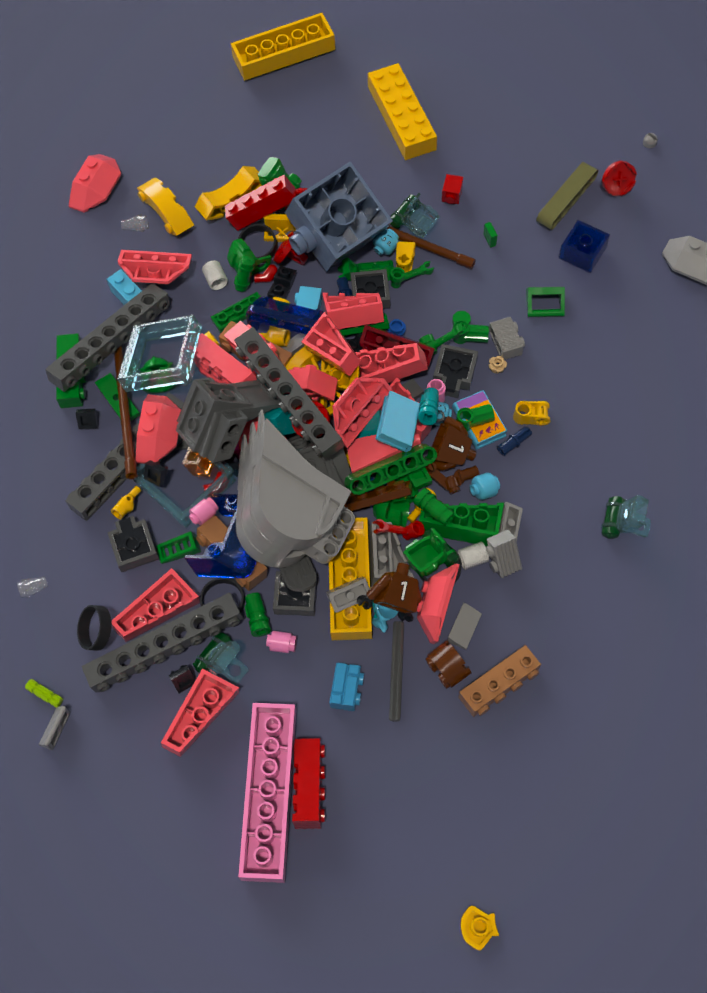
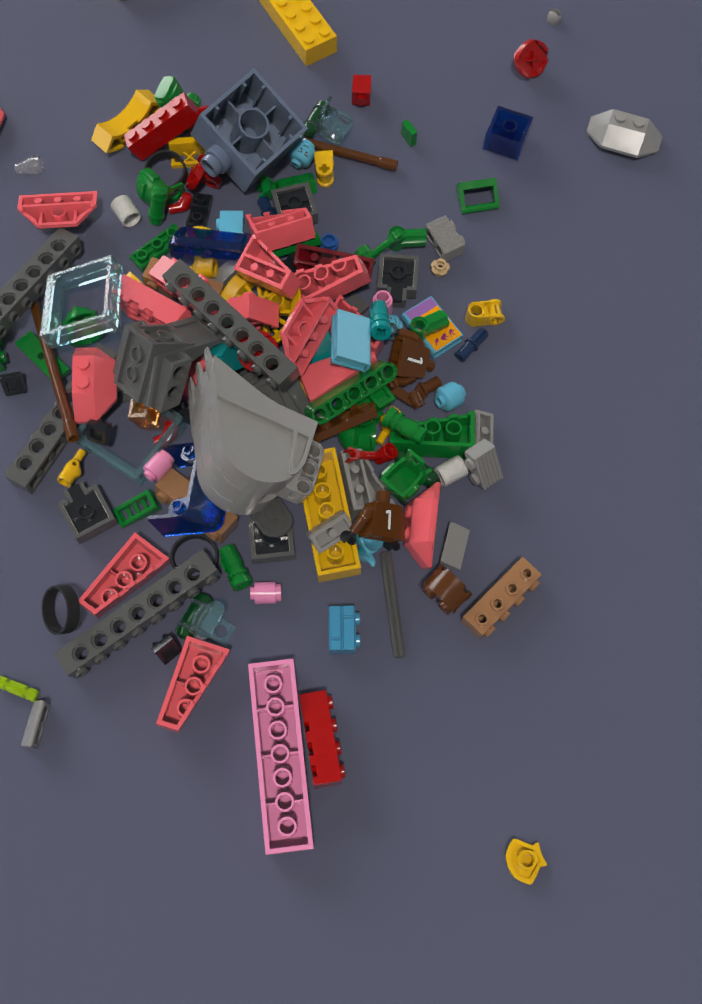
camera: 15 degrees left, 5 degrees up
(122, 286) = (27, 235): medium azure brick -> none
(163, 202) = (57, 140): yellow brick -> none
(398, 275) = (321, 186): green brick -> none
(461, 315) = (393, 221): green tile -> none
(567, 195) = (480, 83): olive beam -> none
(626, 516) = (600, 407): clear light blue piece -> none

